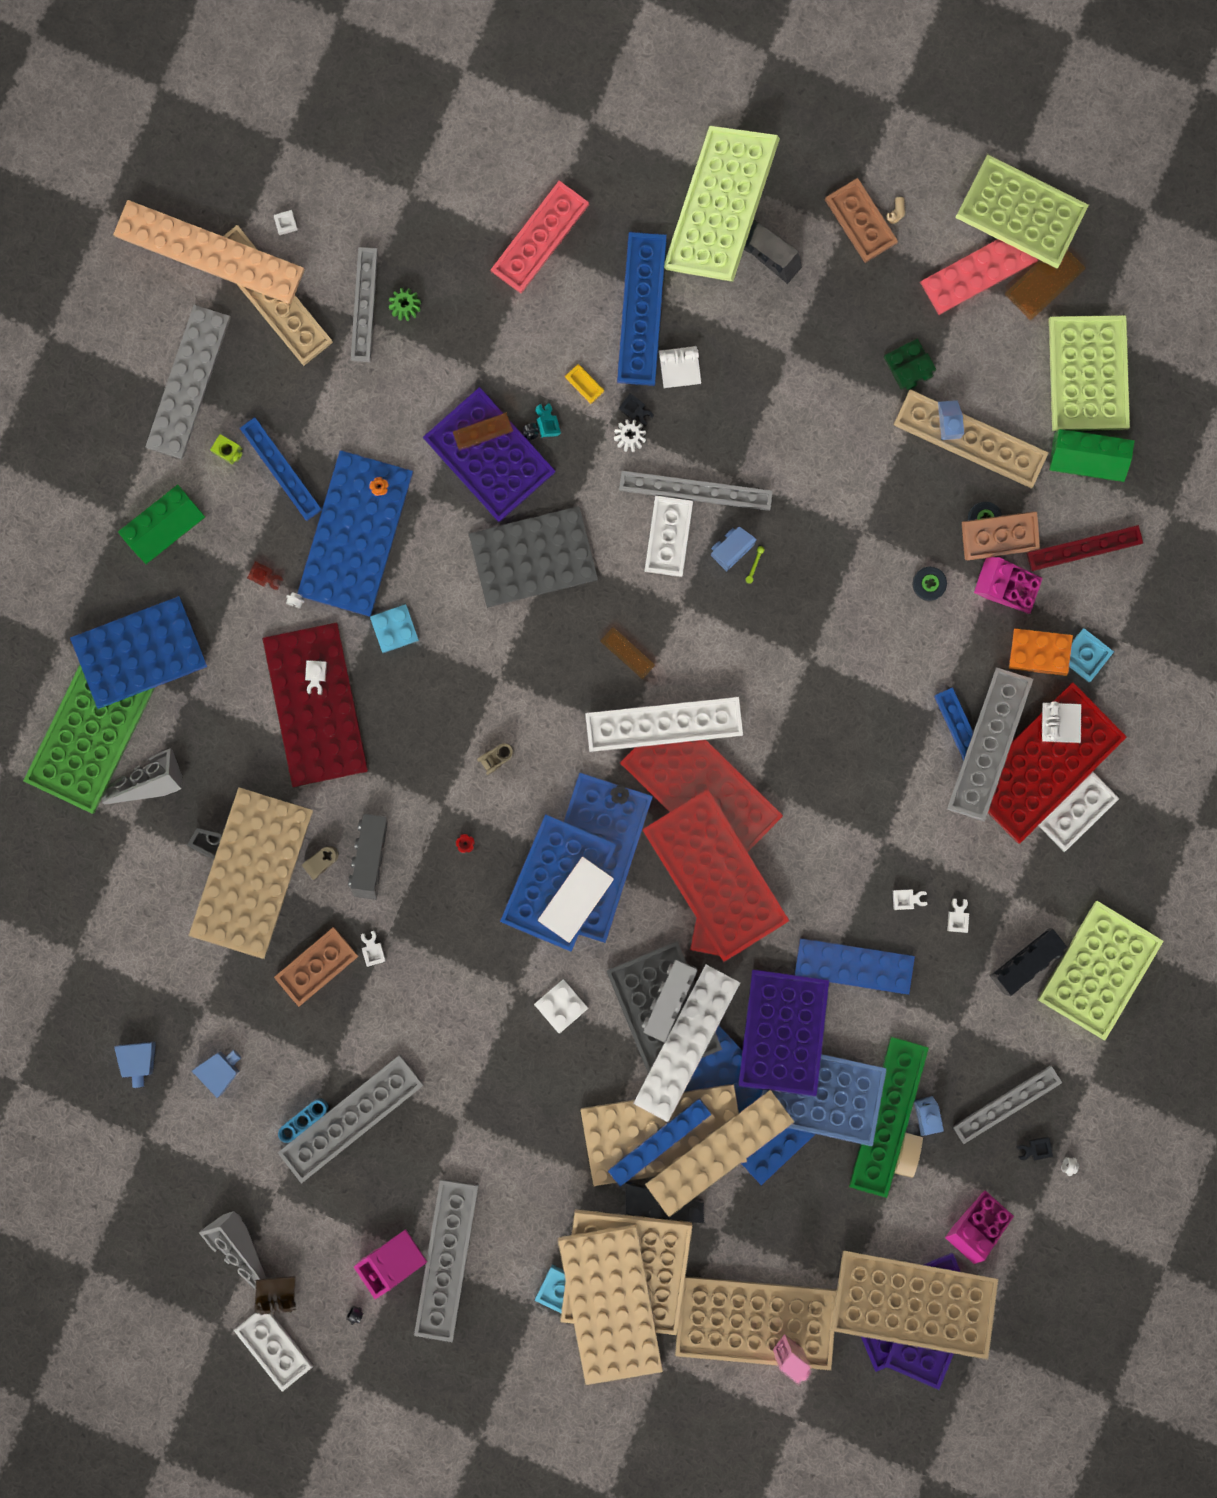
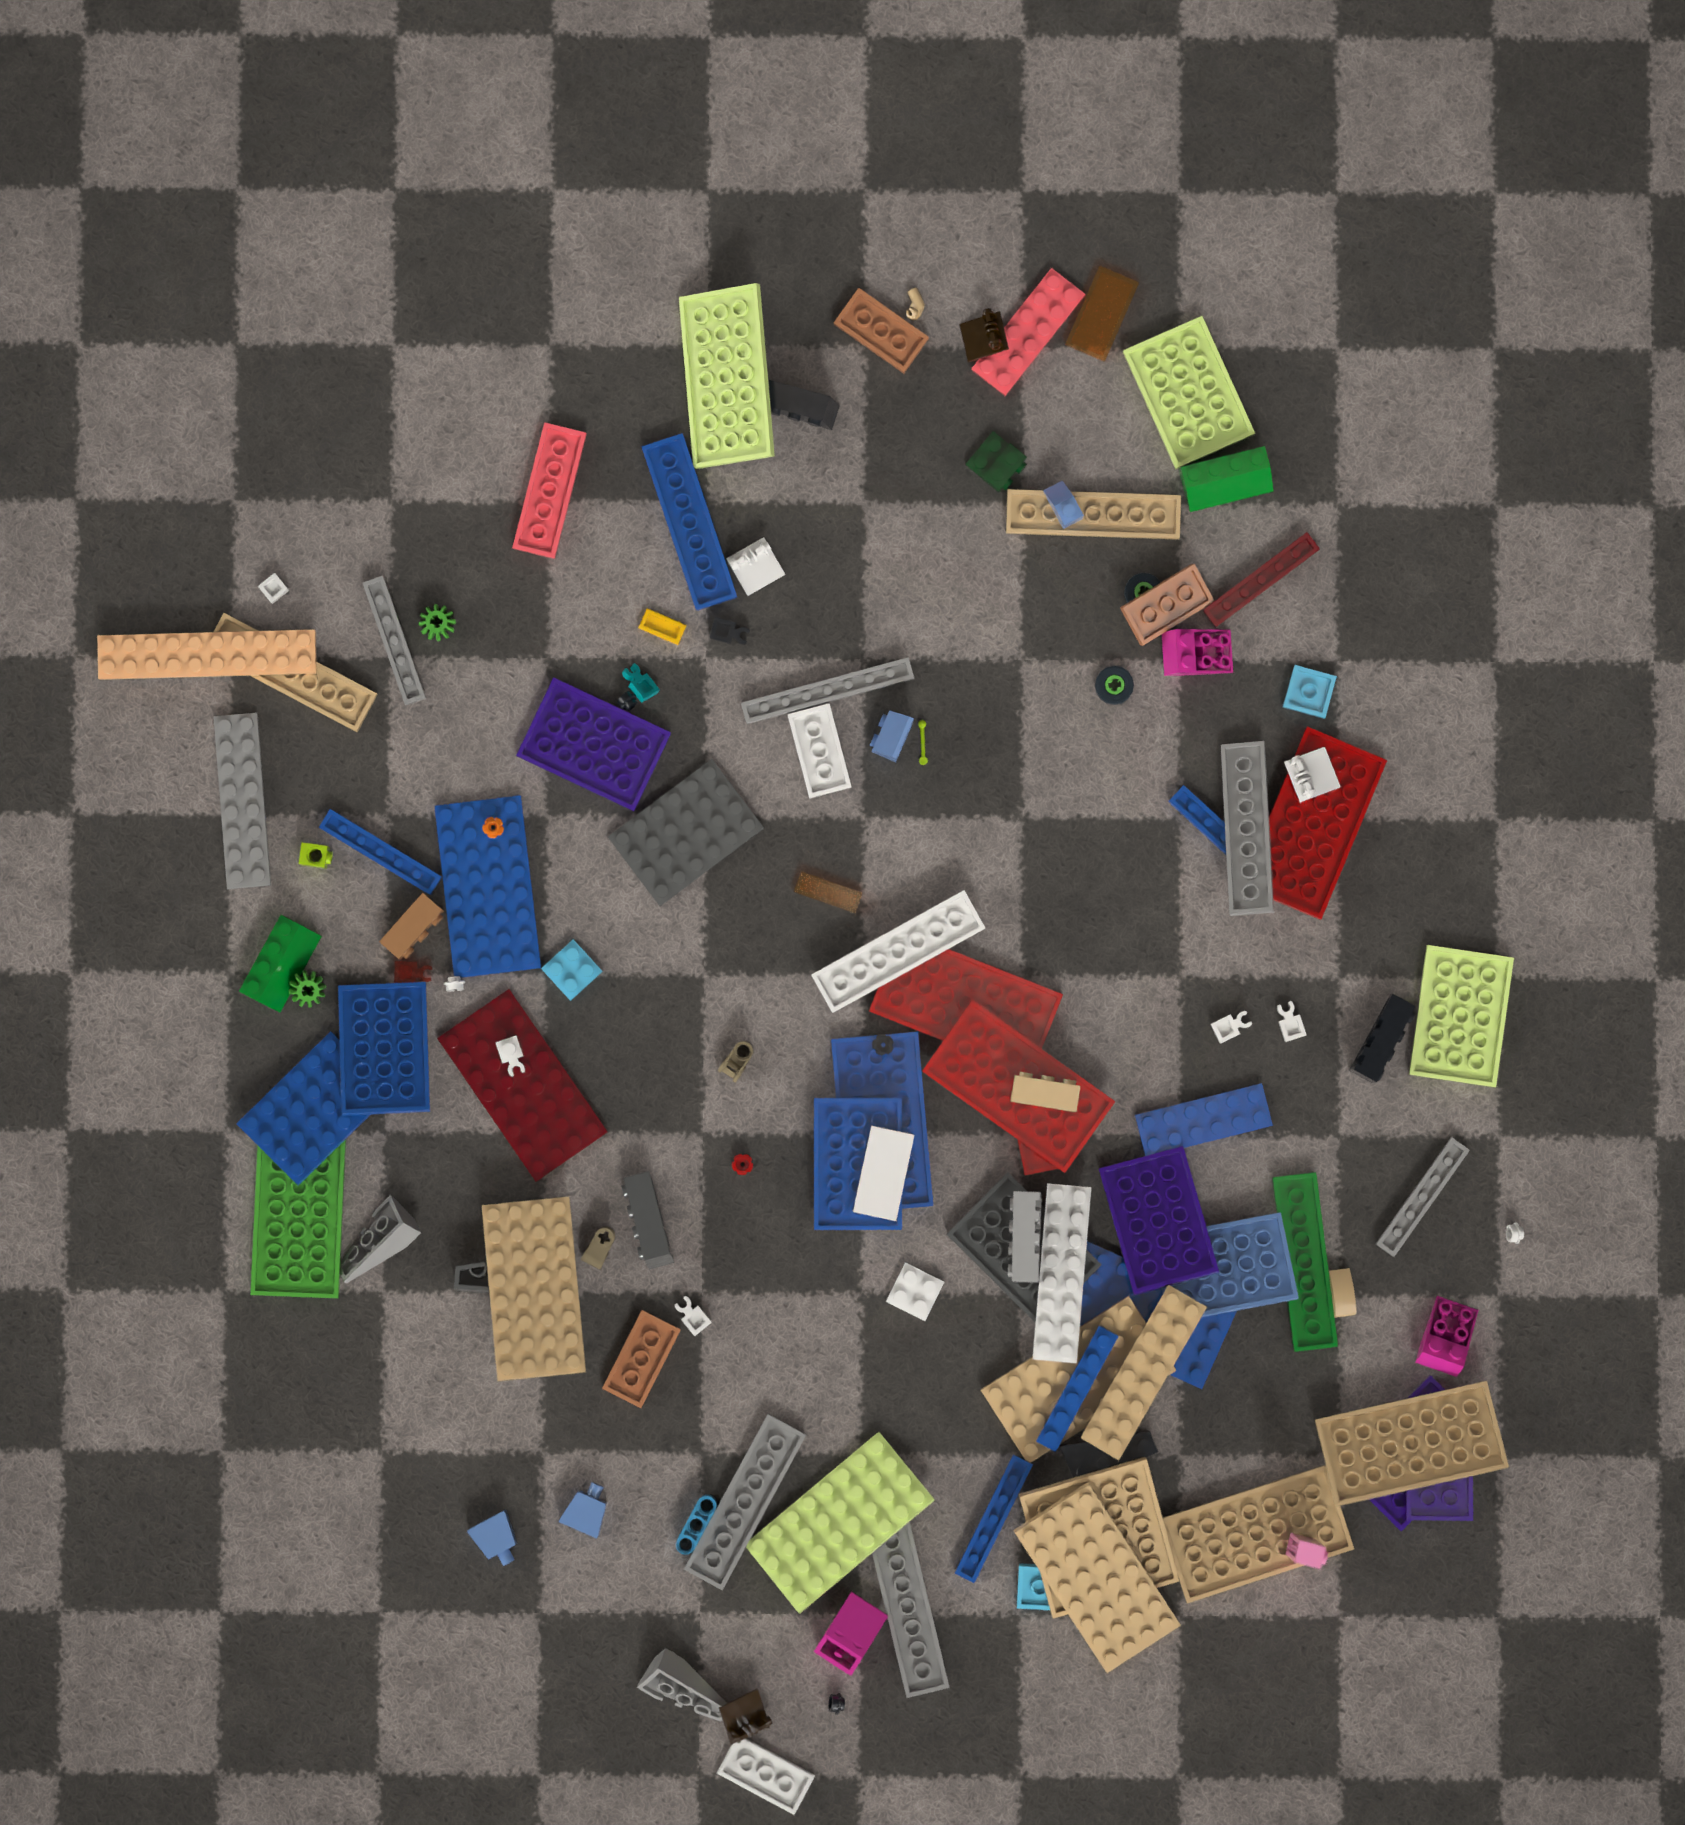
camera: 20 degrees left, 0 degrees up
(168, 548) = (316, 987): none -> bright green gear
(214, 627) = (383, 1048): none -> blue plate
(280, 539) = (412, 927): none -> medium nougat brick
(419, 1168) = (839, 1522): none -> yellowish green plate
(482, 431) = (577, 723): clear orange tile -> none
(546, 1218) = (993, 1518): none -> blue plate
(635, 430) = (735, 654): white gear -> none
(735, 889) = (1045, 1092): none -> tan brick
(928, 1116) = (1345, 1243): medium blue torso -> none
(942, 258) = (984, 335): none -> dark brown hinge
(1022, 211) = (1046, 251): yellowish green plate -> none
(1038, 1148) = (1474, 1229): black plate -> none
(1040, 652) = (1259, 709): orange brick -> none
(1078, 811) = (1369, 859): white tile -> none

